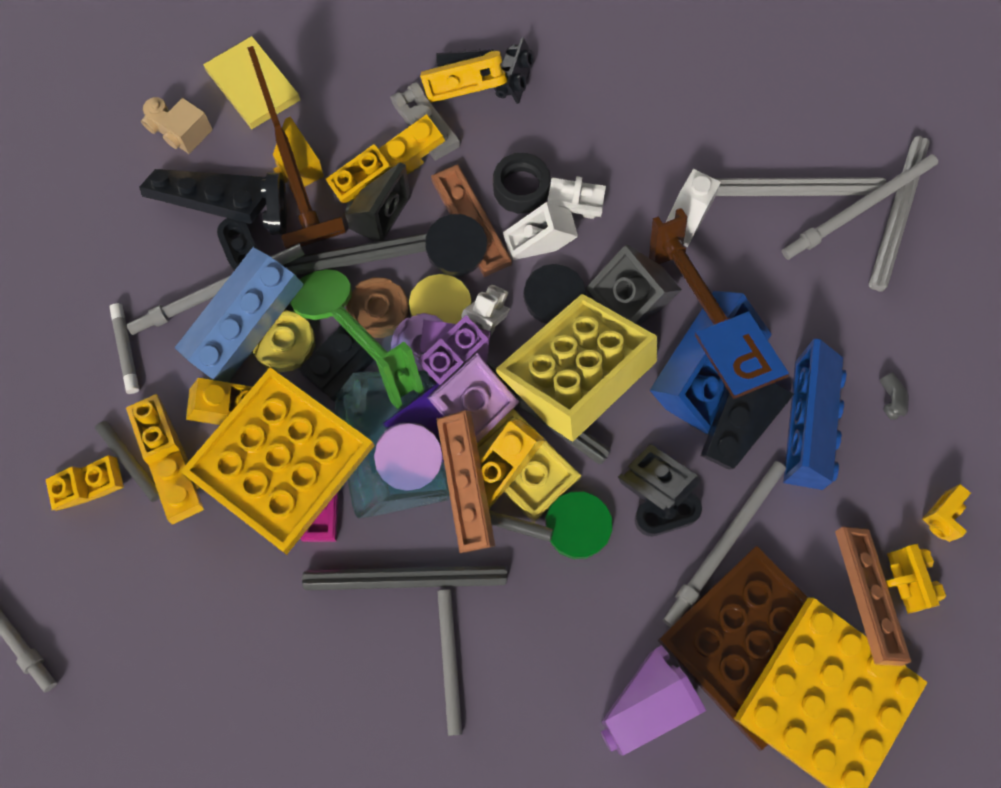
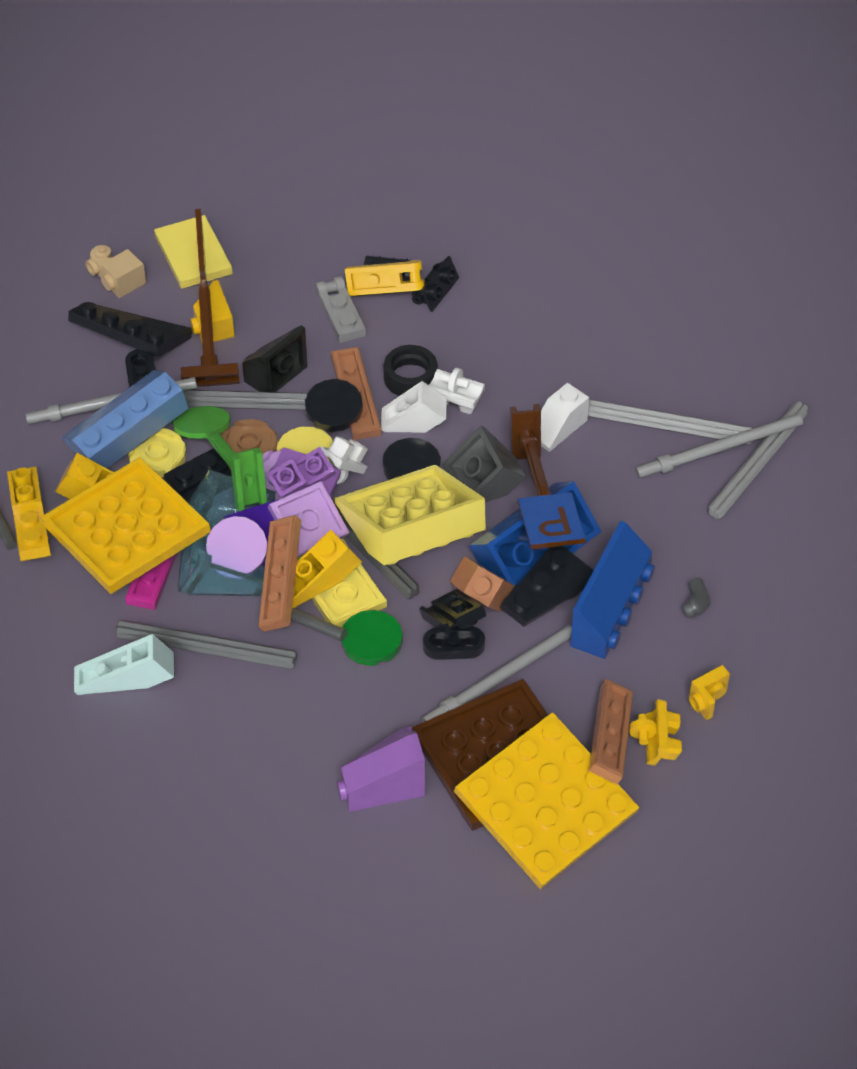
camera: 15 degrees right, 20 degrees down
(124, 348) = (17, 432): light grey bar -> none
(276, 214) = (185, 335): black plate -> none
(326, 637) = (126, 668): none -> light aqua slope
(372, 163) = (316, 322): yellow slope -> none
(449, 663) = (224, 713): light grey bar -> none
(675, 435) = (481, 584): none -> nougat slope

